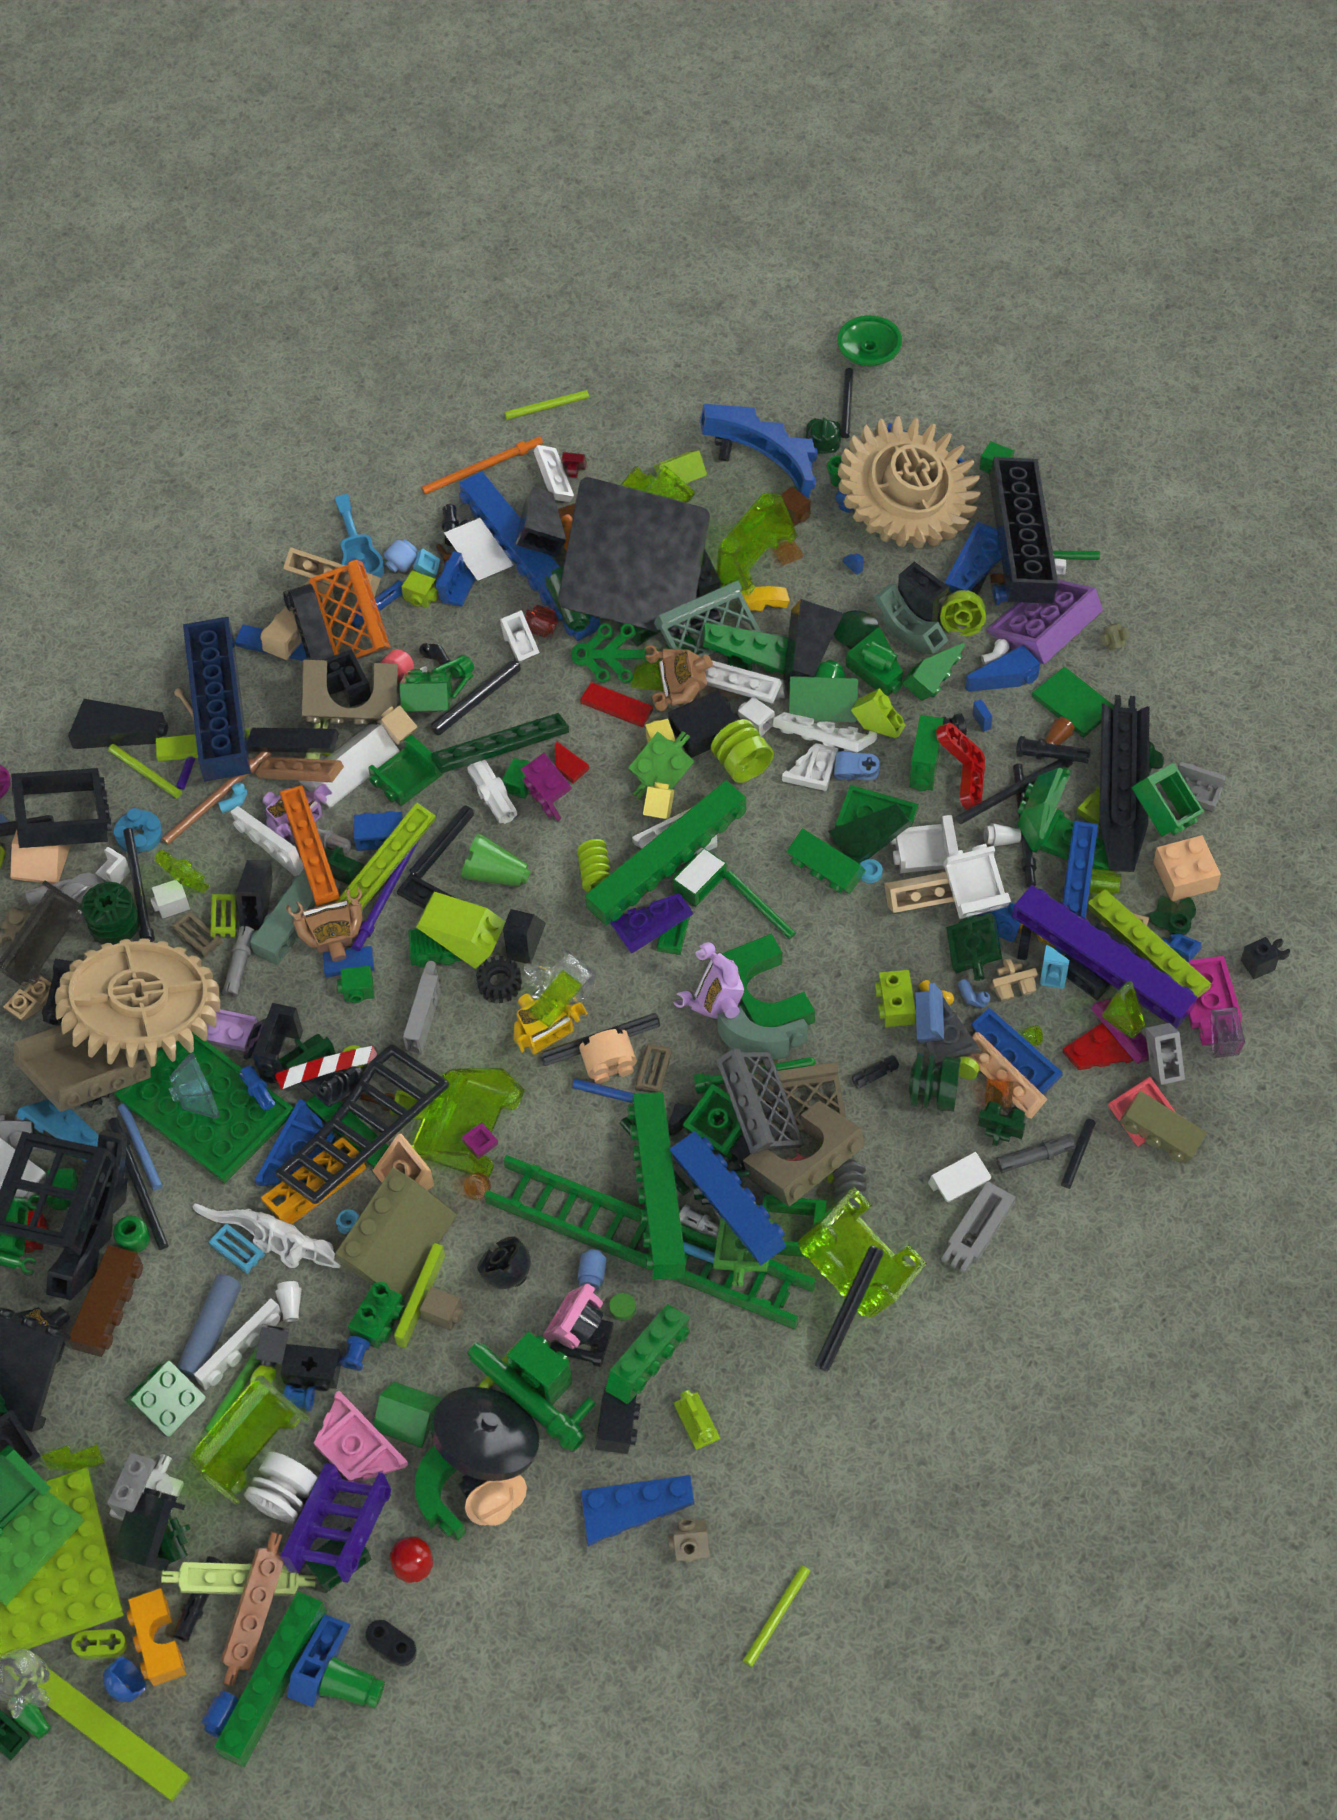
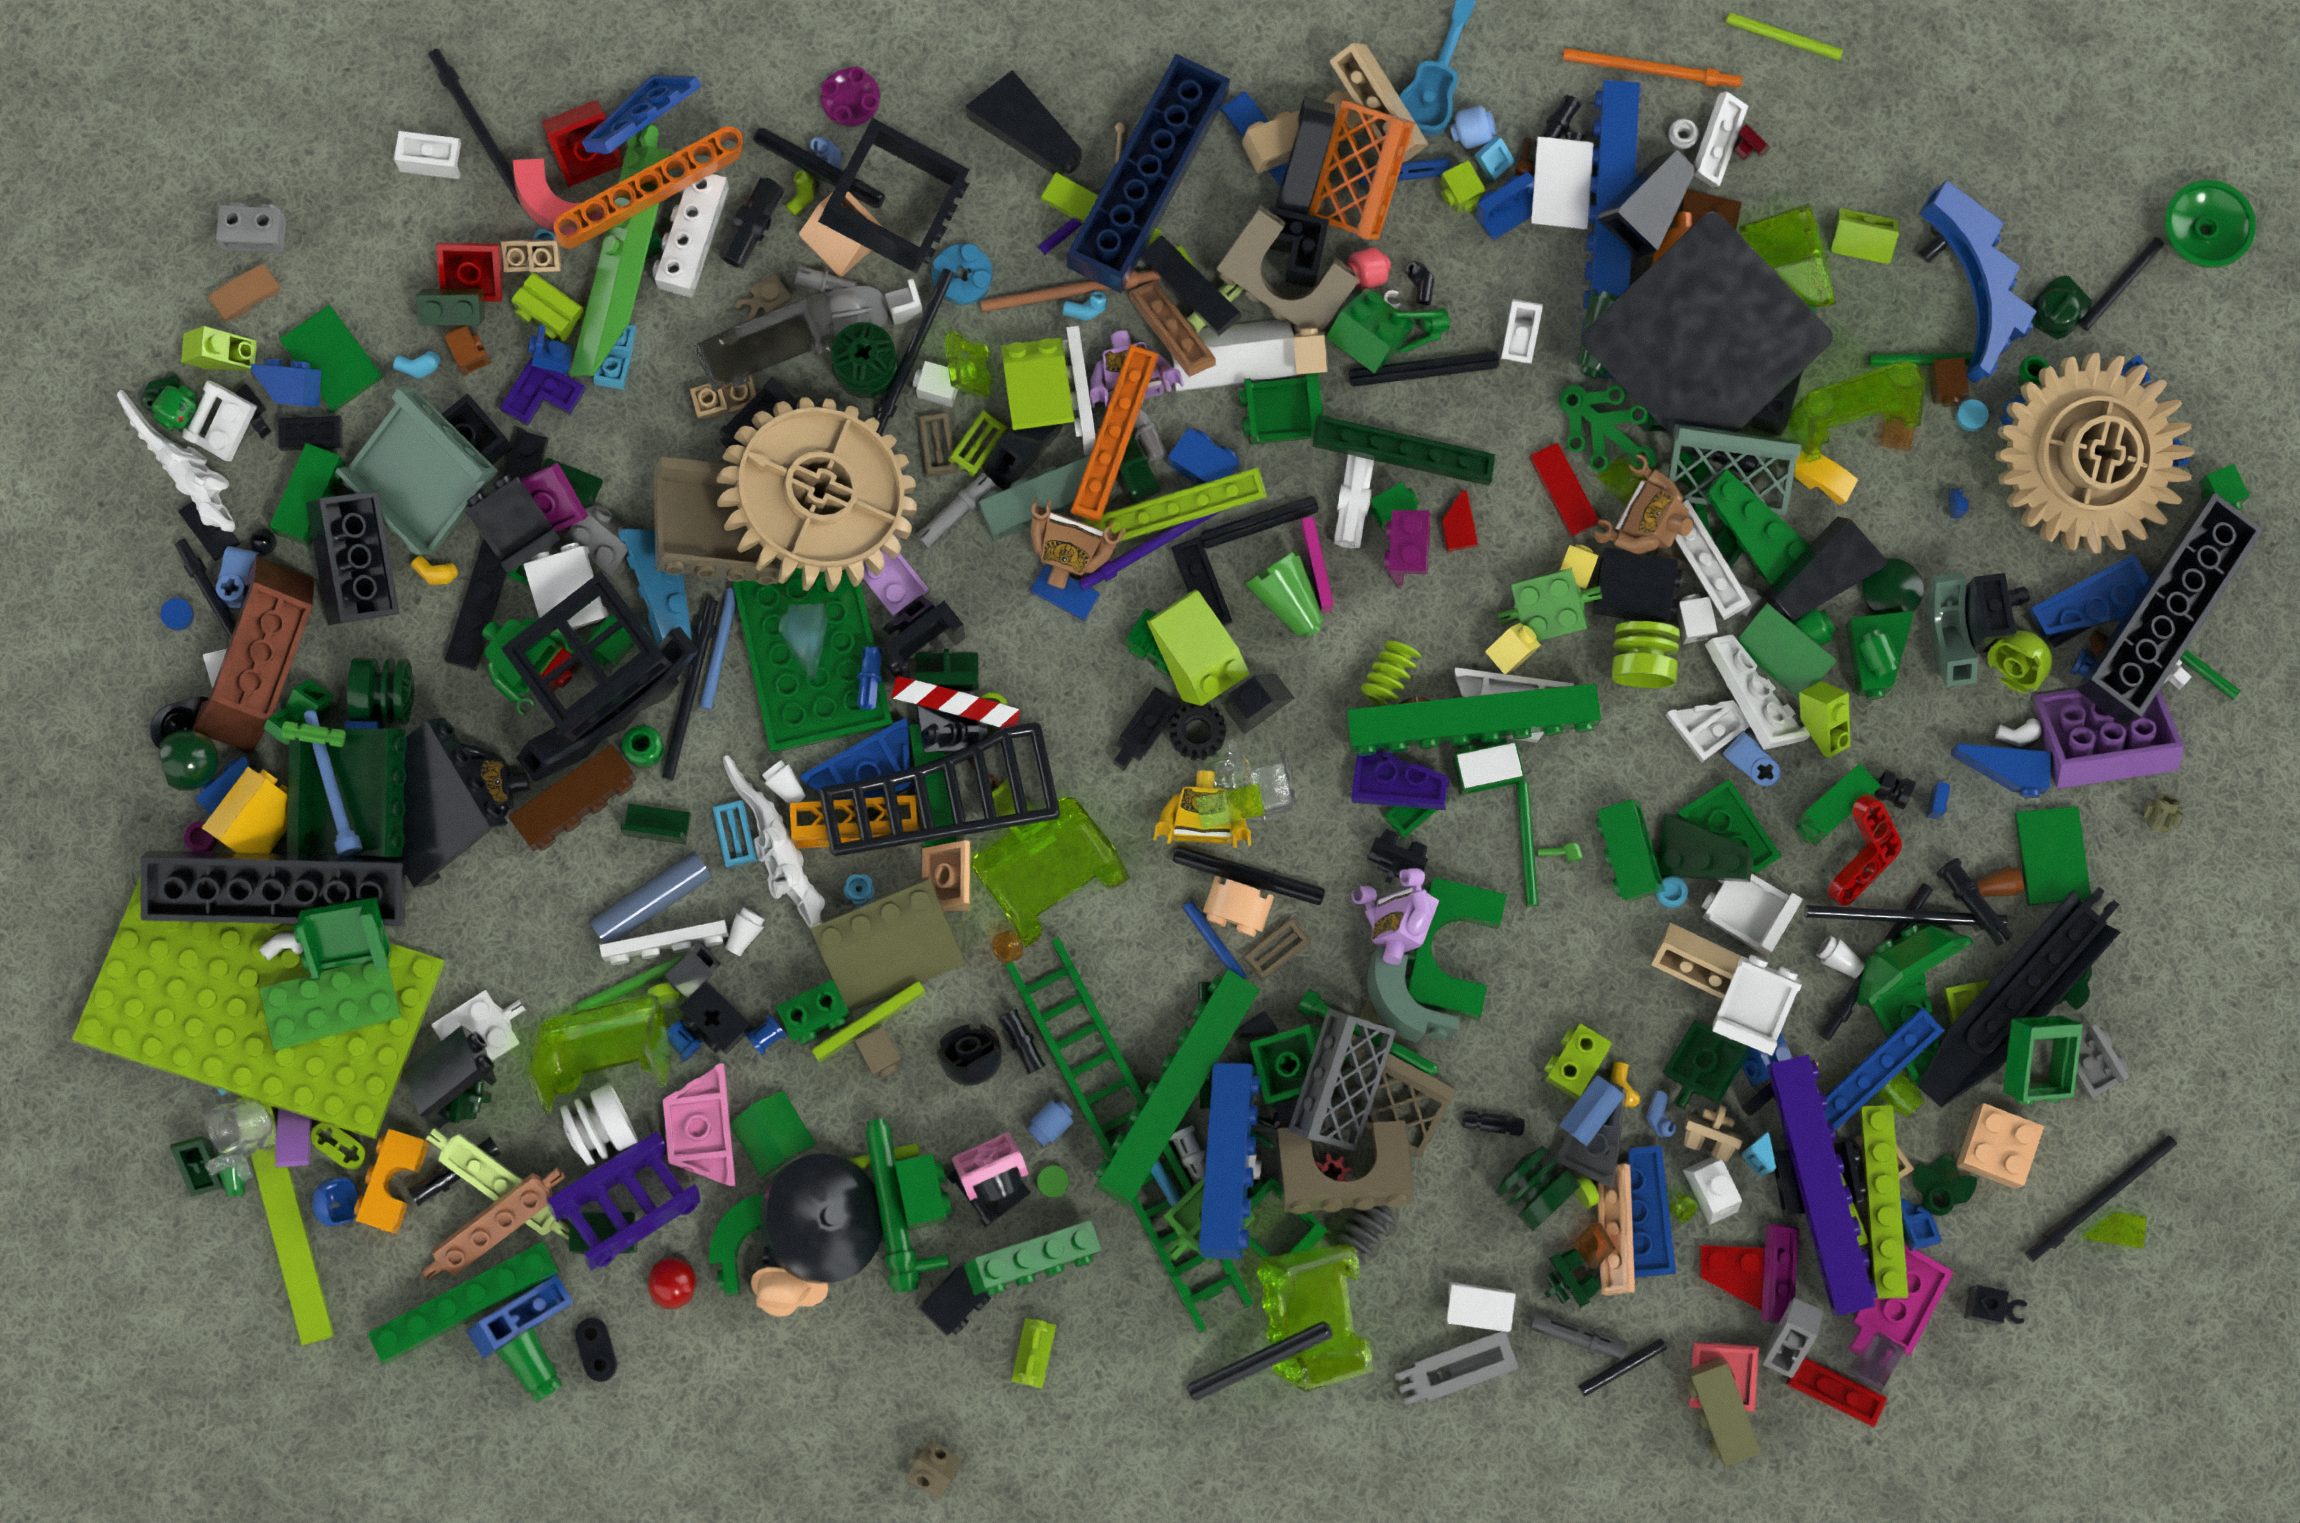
camera: 30 degrees right, 20 degrees up
(61, 1659) = (292, 1139): none -> medium lavender slope
(65, 1460) = (430, 938): clear neon green slope -> none
(131, 1484) = (462, 1021): light grey bracket -> none
(145, 771) = (1019, 202): lime bar -> none
(166, 1397) = (560, 942): bracket -> none
(177, 1279) = (656, 824): none -> dark green panel
(219, 1713) = (398, 1300): blue brick -> none
(235, 850) = (1037, 383): none -> lime slope
(246, 1193) = (784, 783): none -> white cone
(356, 984) = (1052, 628): green brick -> none
(422, 1010) = (1096, 709): light grey hinge -> none
(464, 1000) = (1145, 727): none -> black hinge
(479, 1140) = (1044, 901): magenta plate -> none
(481, 826) = (1317, 564): none -> dark pink tile
(527, 480) = (1687, 126): none -> white plate
(532, 1236) = (1022, 1041): none -> black pin
(541, 620) = (1560, 327): clear red head -> none
(624, 1506) = (905, 1387): blue wing -> none
(684, 964) = (1395, 858): none -> black hips
(790, 888) = (1572, 852): none -> bright green hand
(822, 516) = (1972, 415): none -> medium azure tile
(928, 674) = (1923, 707): green slope -> none
(1043, 1008) = (1713, 1189): none -> white torso
(1125, 1011) = (1792, 1261): clear neon green slope -> none
(1219, 1072) = (1838, 1392): none -> red tile
(1263, 895) = (2055, 1235): none -> black bar
(1297, 867) = (2119, 1230): none -> clear neon green tile

